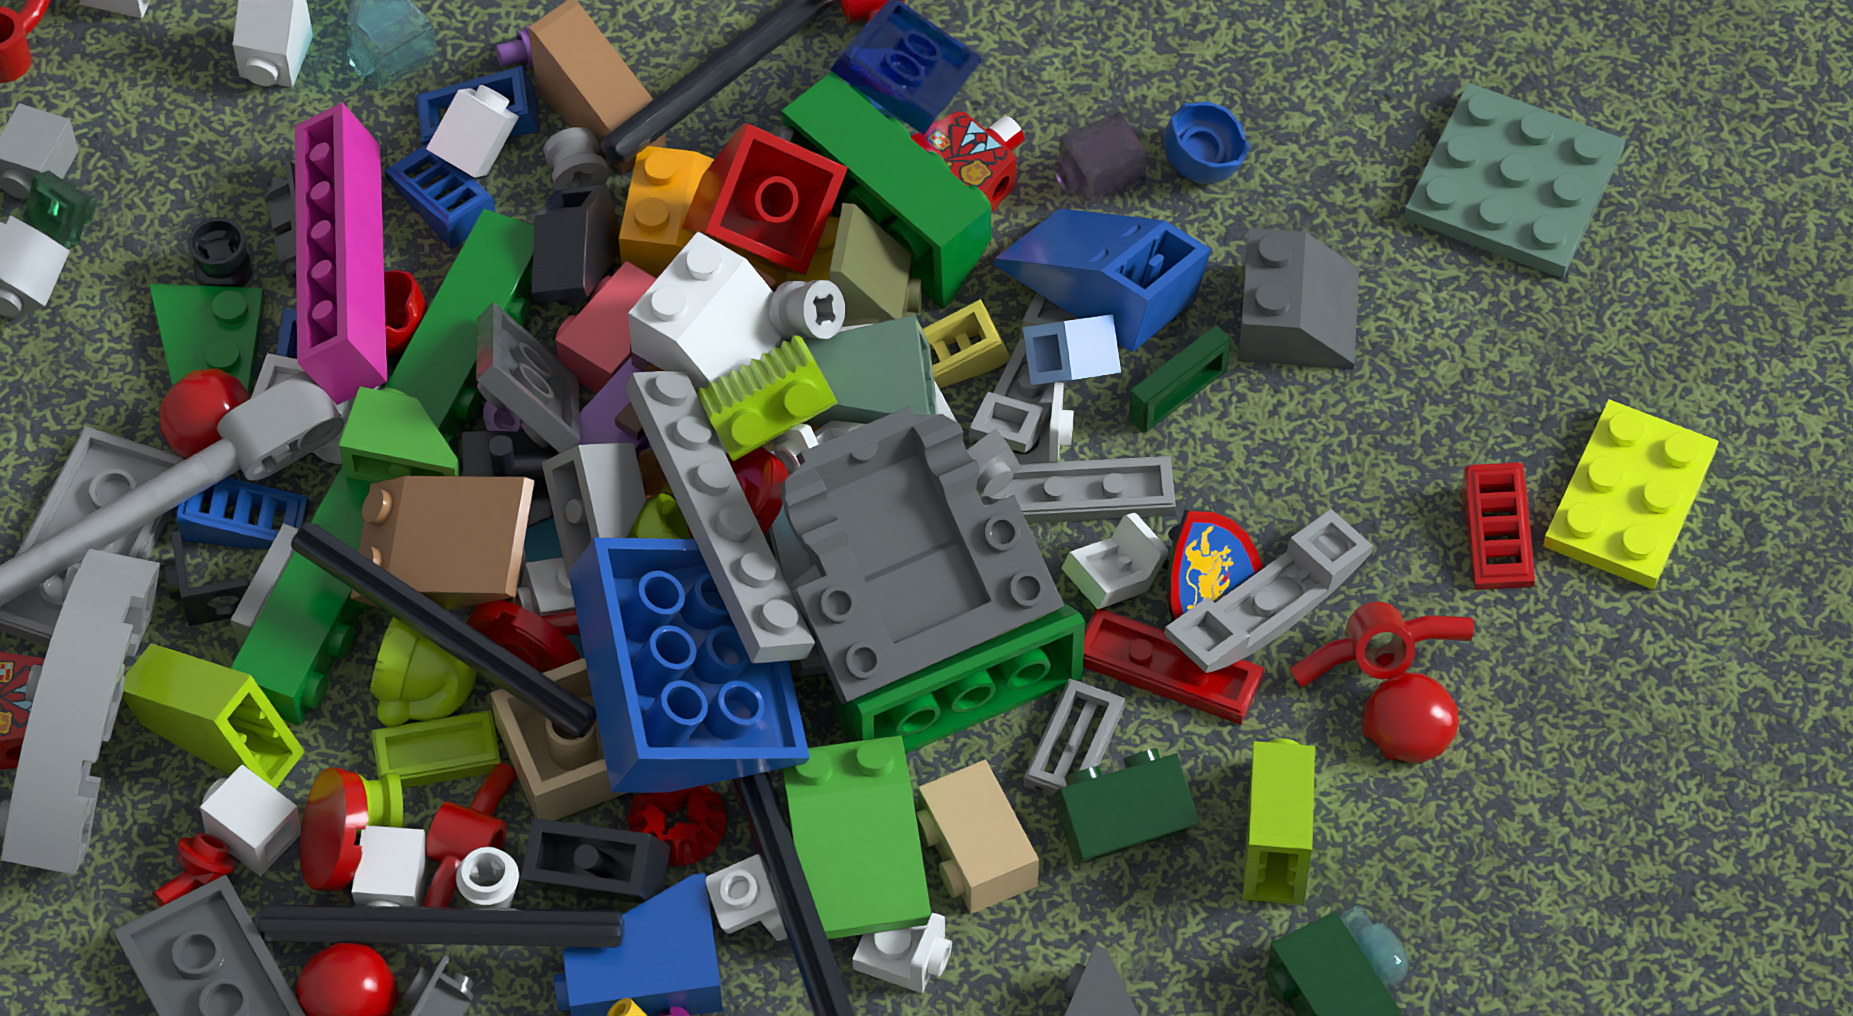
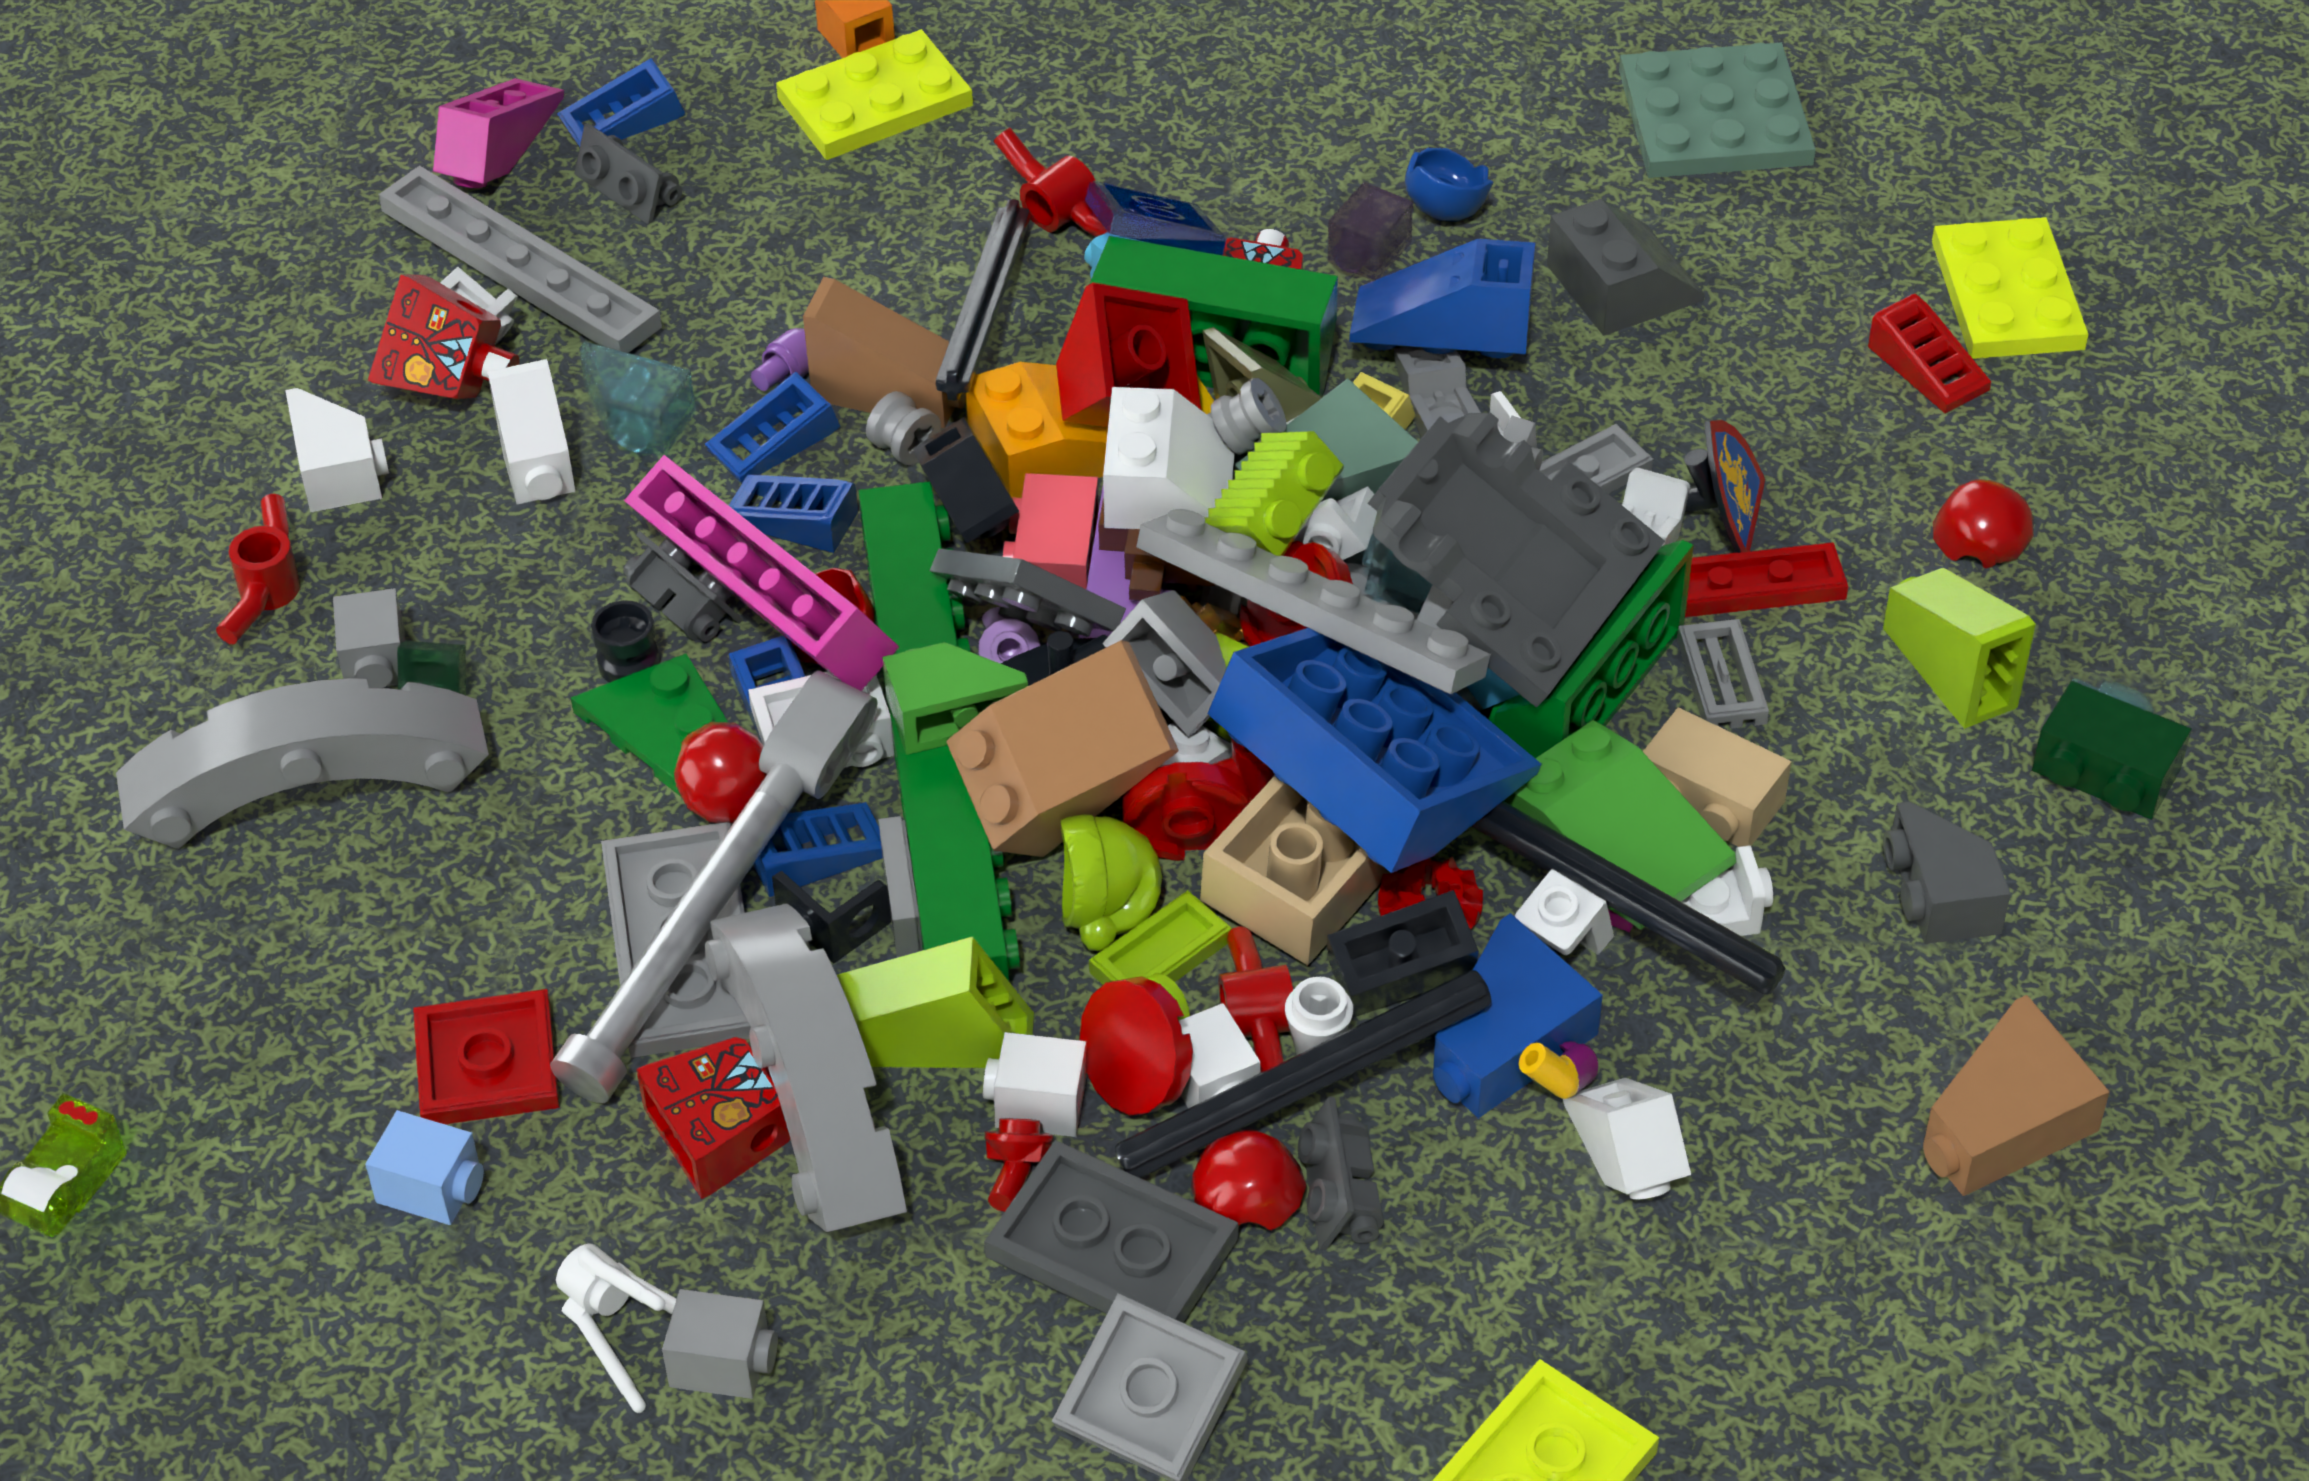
camera: 30 degrees left, 10 degrees down
(444, 629) = (1125, 814): black axle -> none
(473, 130) = (795, 435): white brick -> none
(1071, 349) = (1480, 367): light blue brick -> none
(1125, 806) = (1821, 694): dark green brick -> none
(1179, 379) = (1577, 361): dark green tile -> none
(1273, 598) = (1796, 478): light grey slope -> none
(1384, 661) = (1918, 474): red piece -> none

